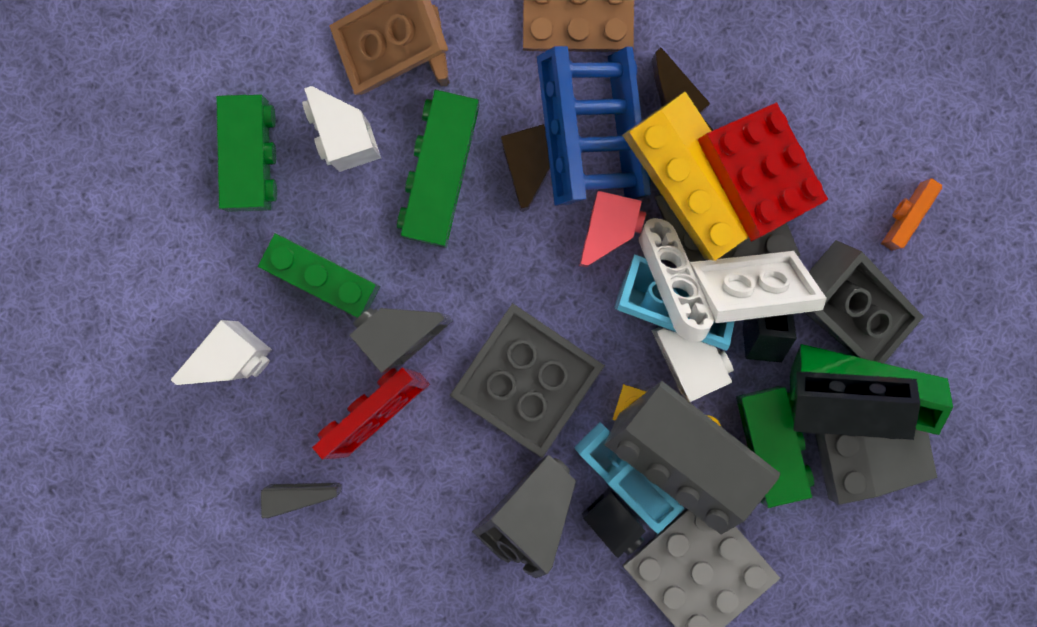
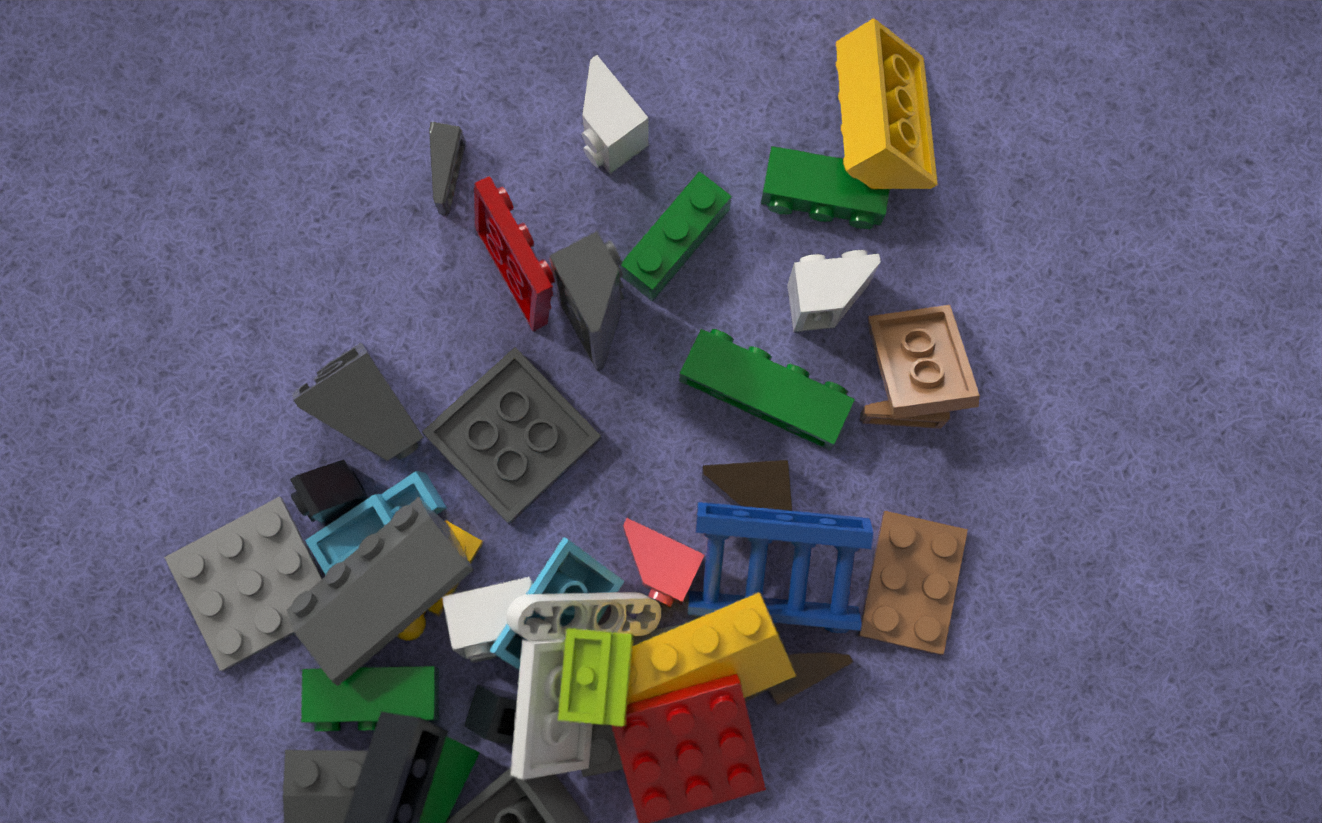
camera: 100 degrees right, 10 degrees down
(163, 113) = (884, 110): none -> yellow slope
(731, 255) = (595, 677): none -> lime plate

